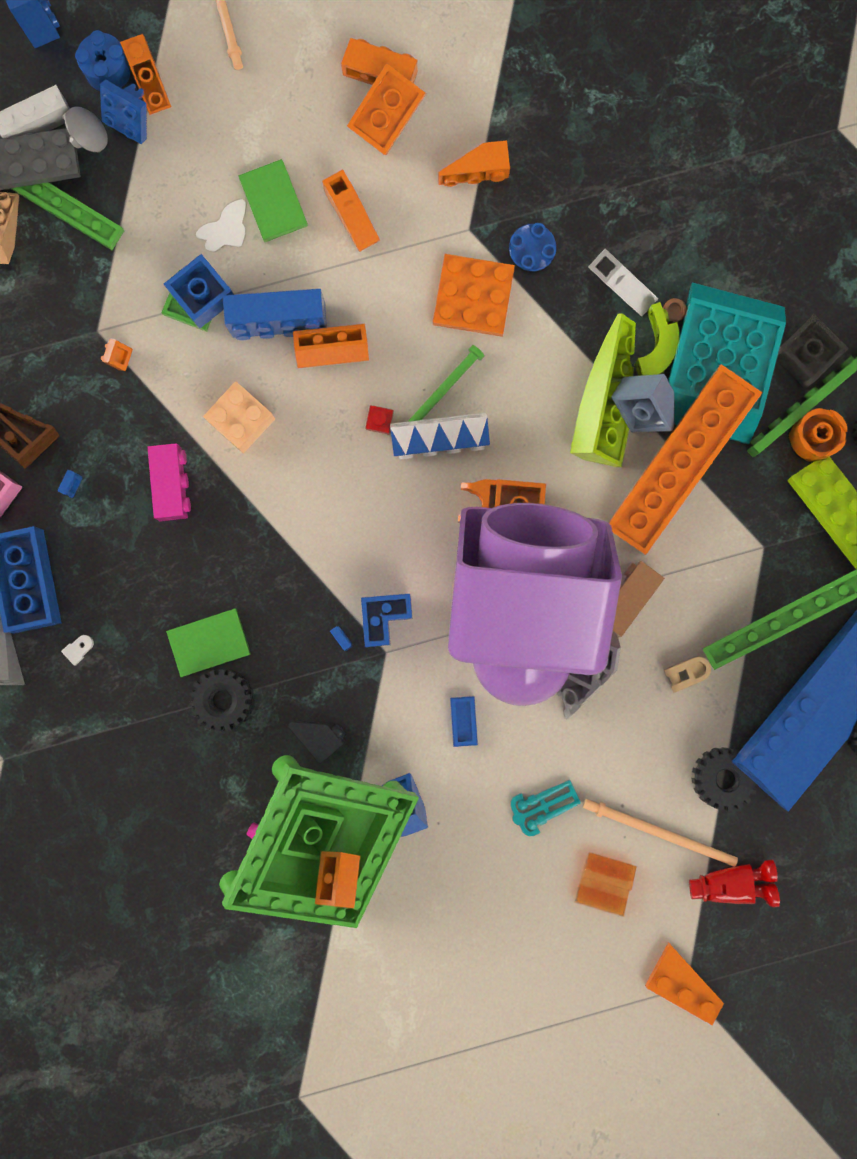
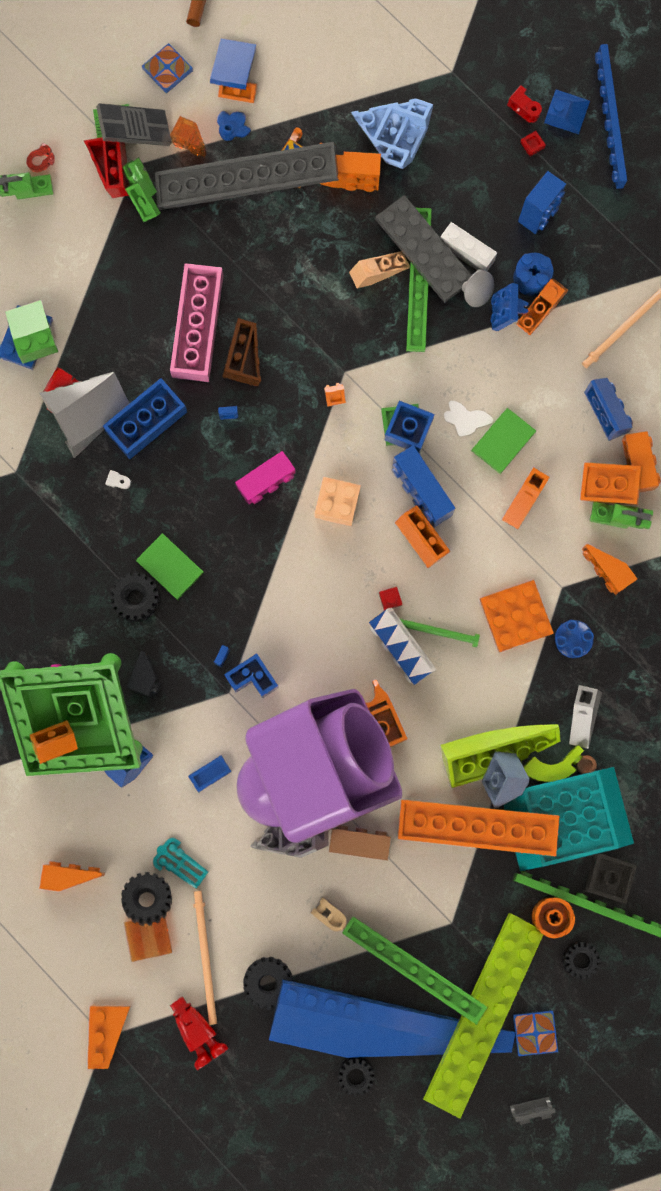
camera: 55 degrees right, 5 degrees down
(301, 67) = (608, 408): none -> blue slope
(427, 120) = (621, 516): none -> bright green plate
(490, 947) = (60, 878): none -> orange slope
(546, 869) = (140, 885): none -> black tyre

